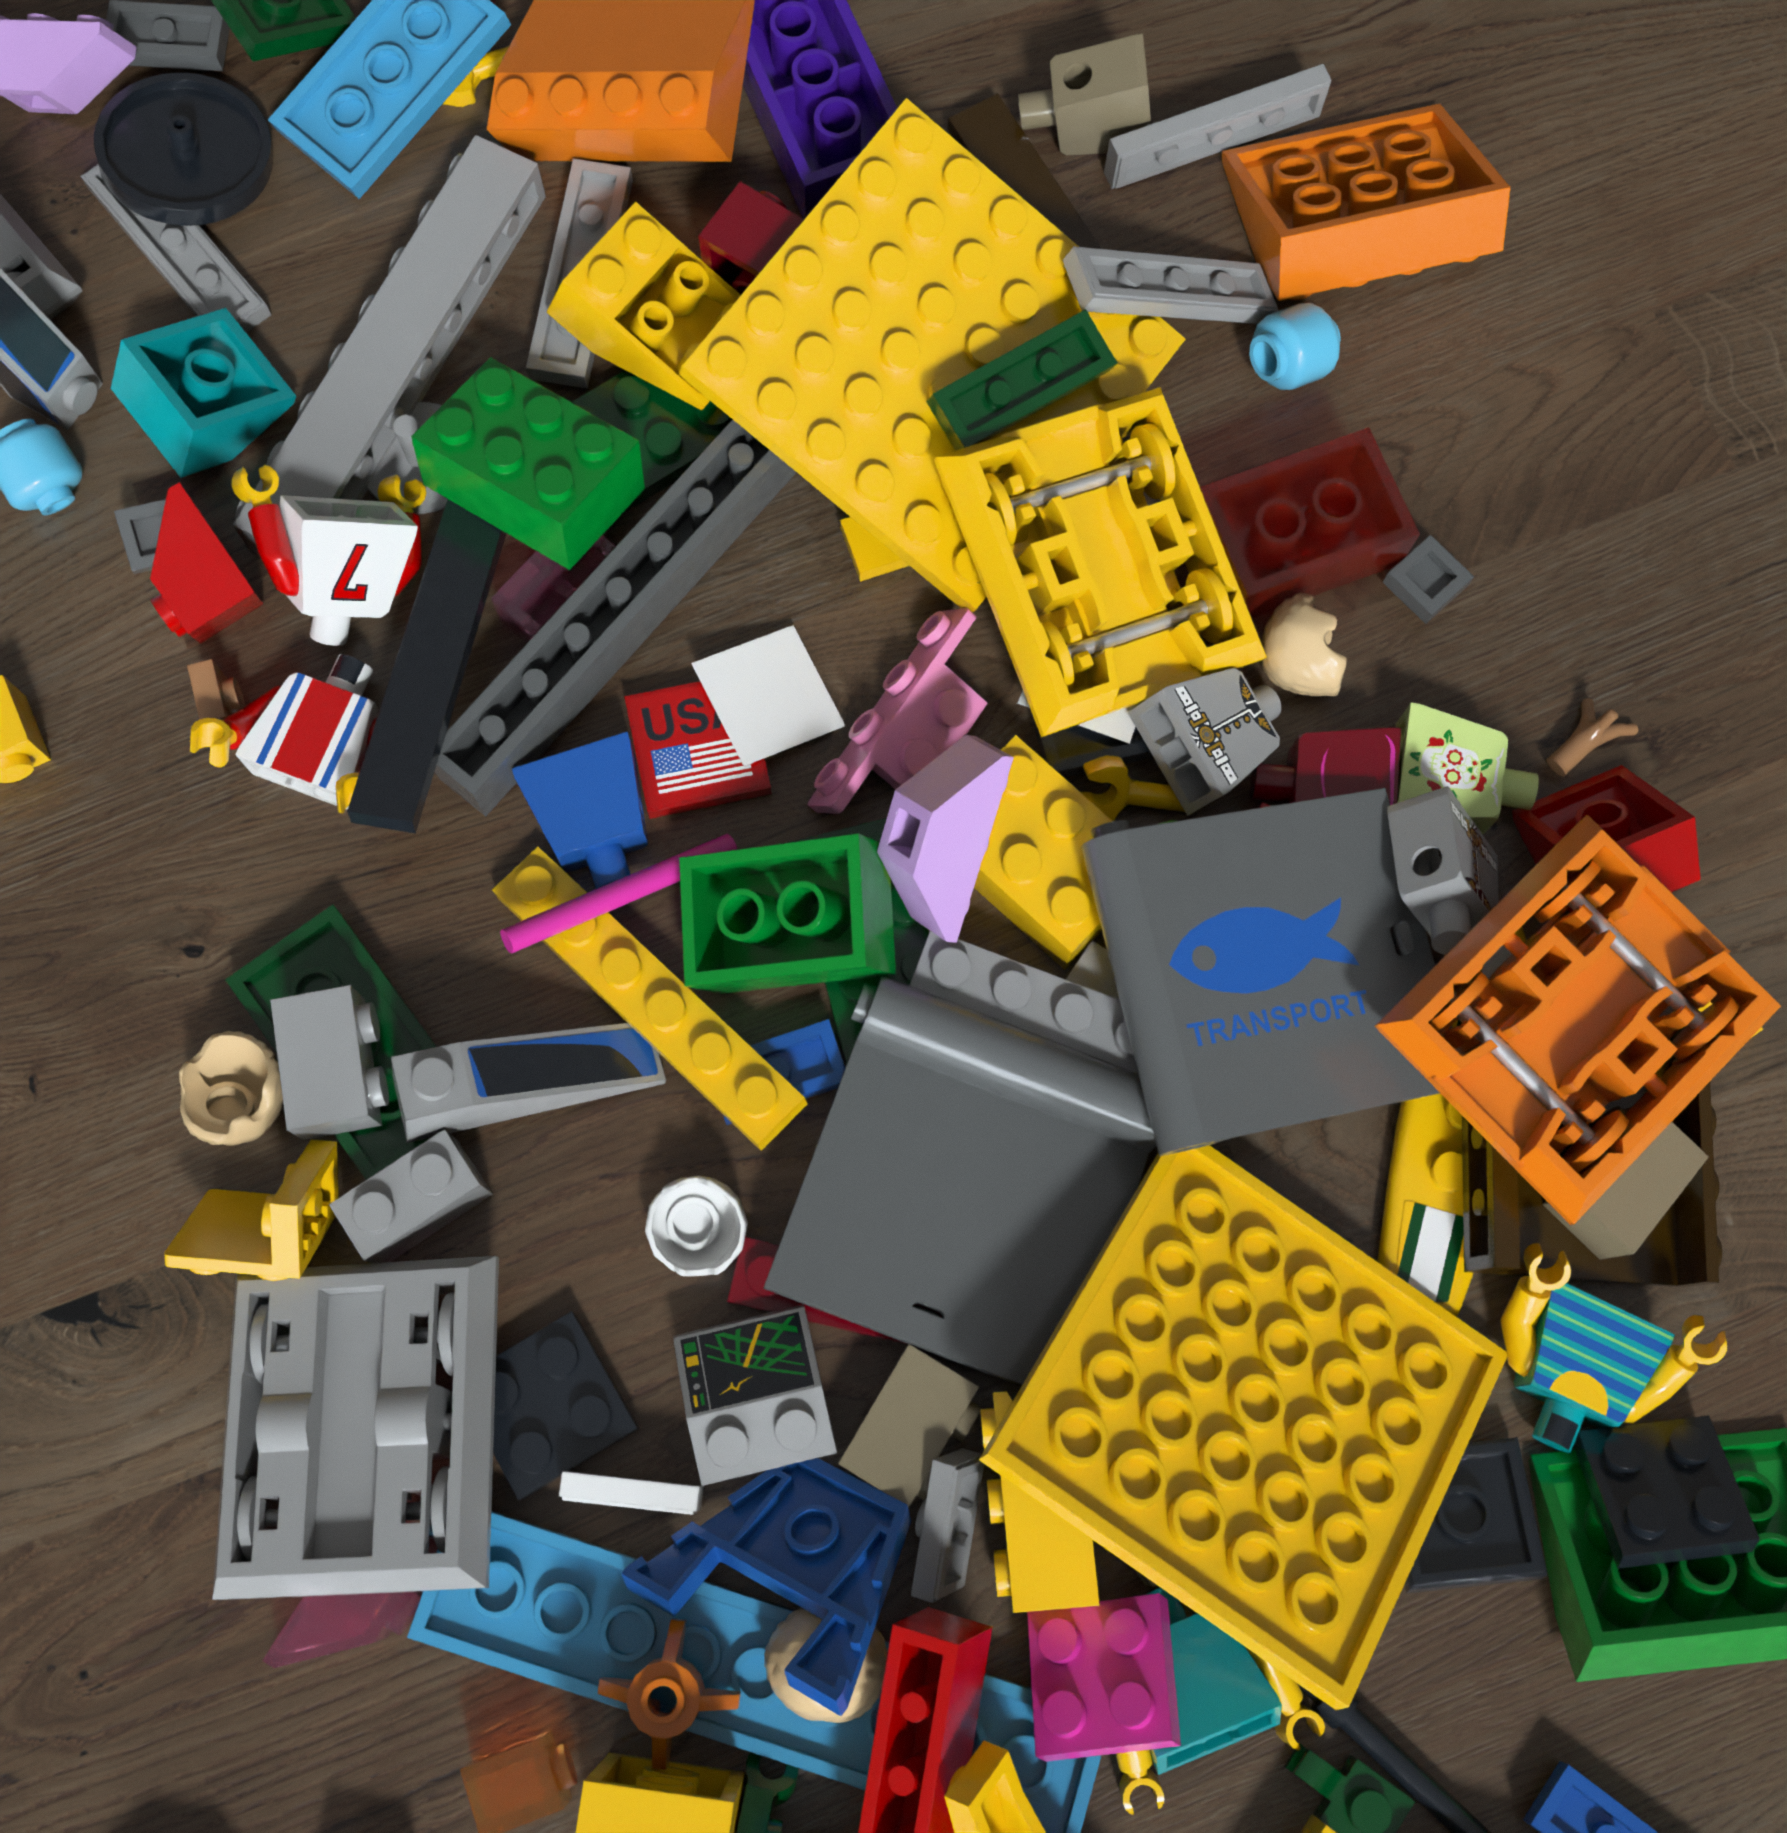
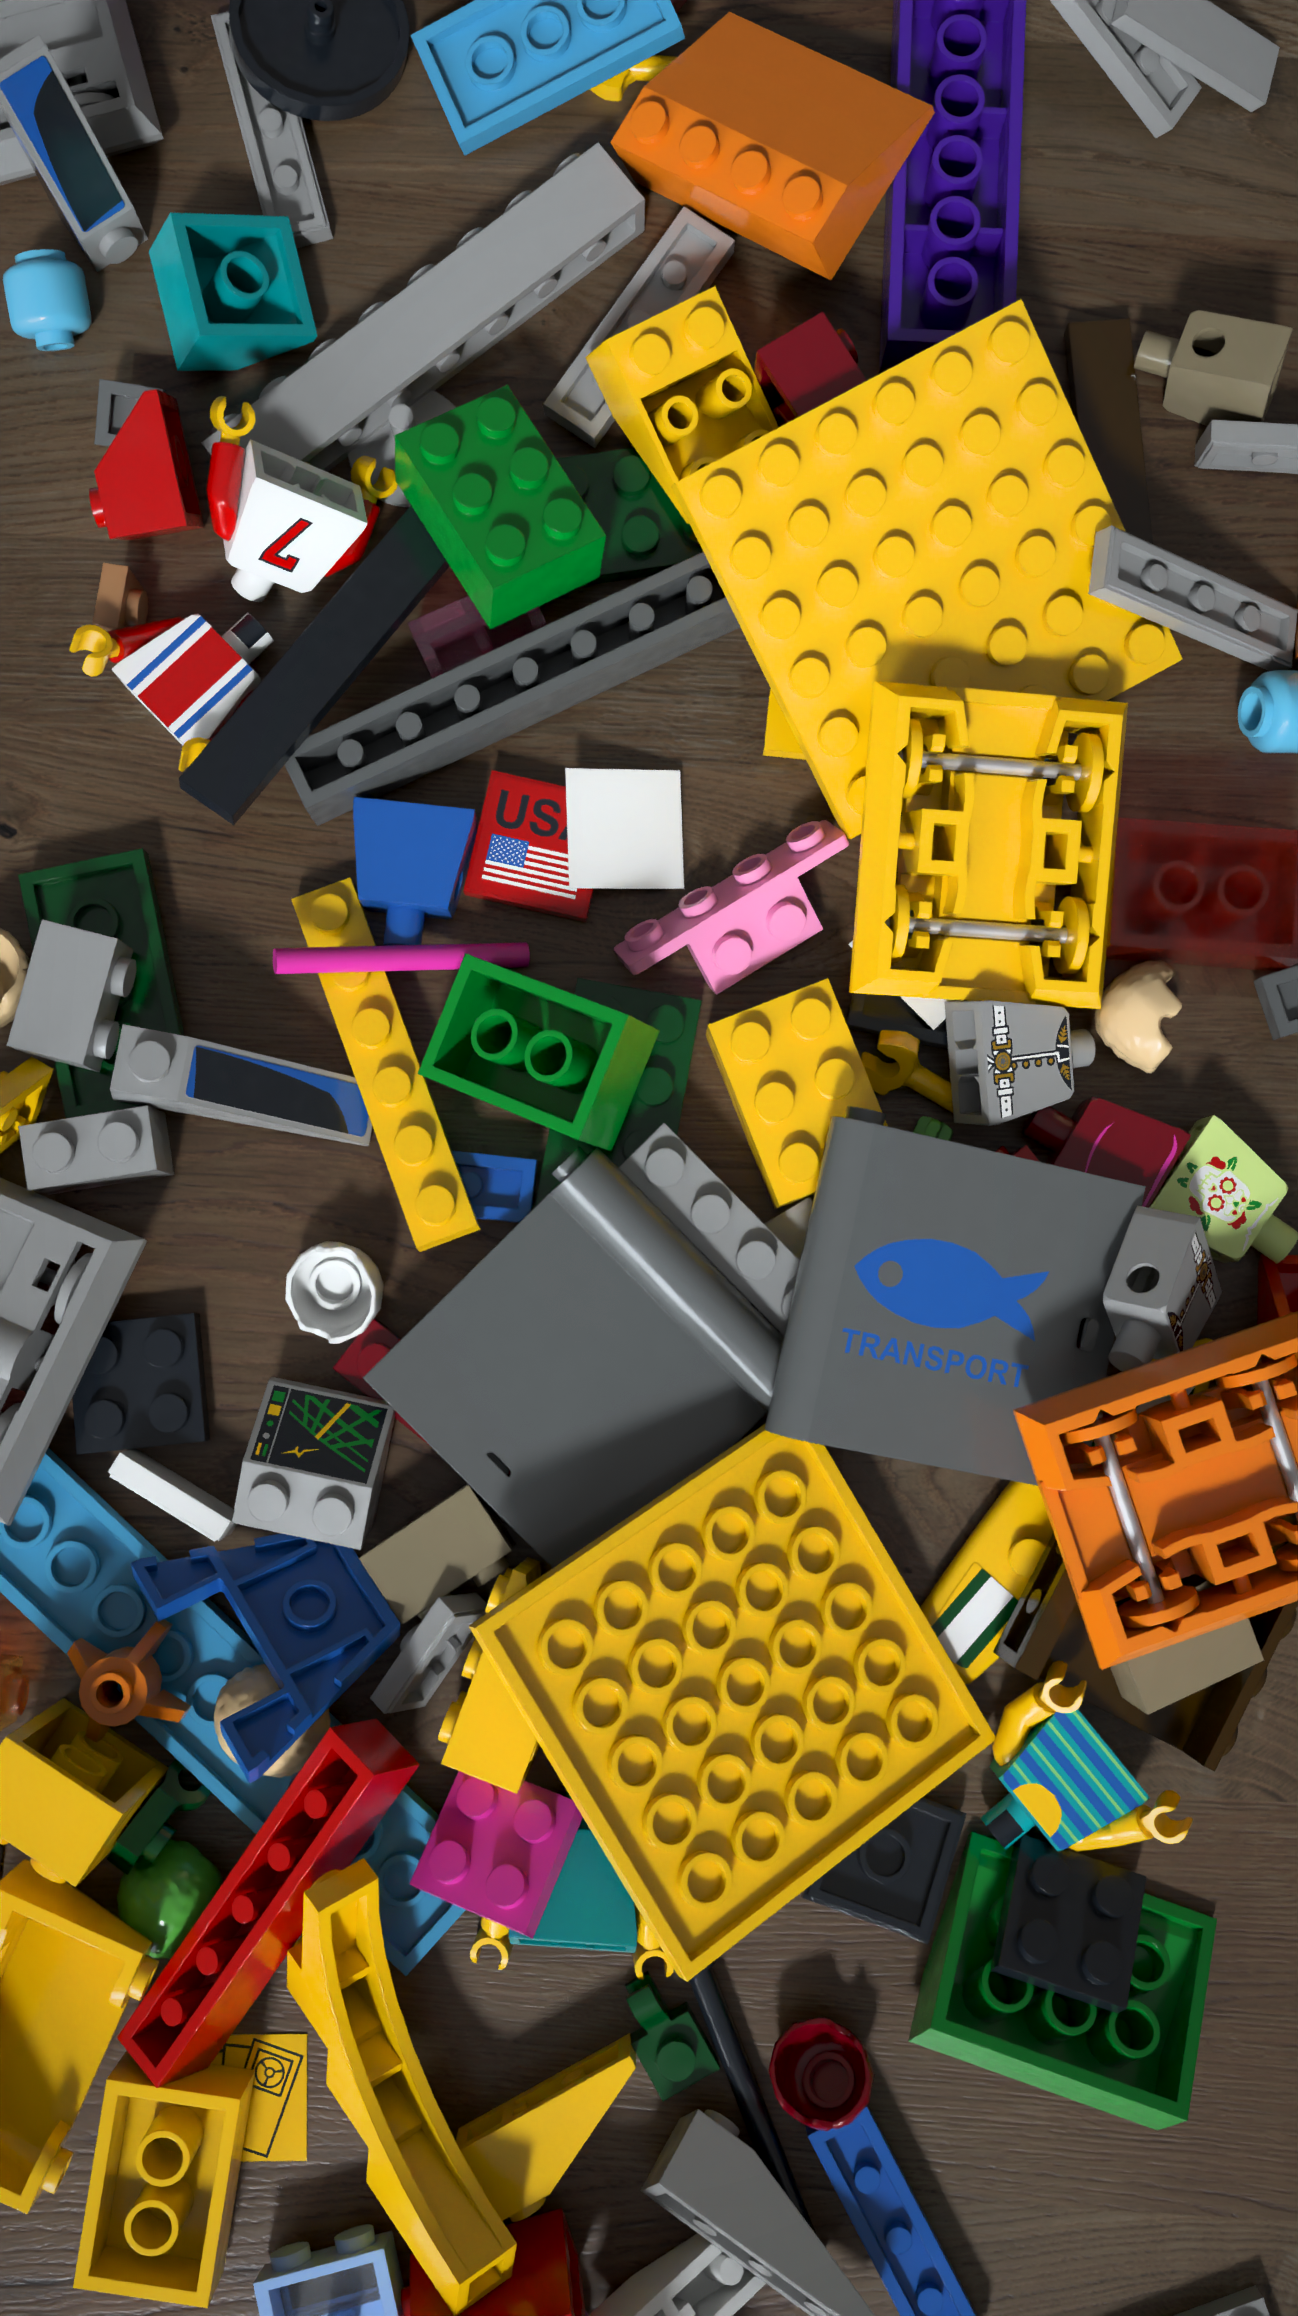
camera: 25 degrees right, 10 degrees up
(942, 830) = (712, 1041): lavender slope -> none
(1022, 382) = (996, 640): dark green plate -> none
(1513, 1754) = (821, 2074): none -> dark red hair

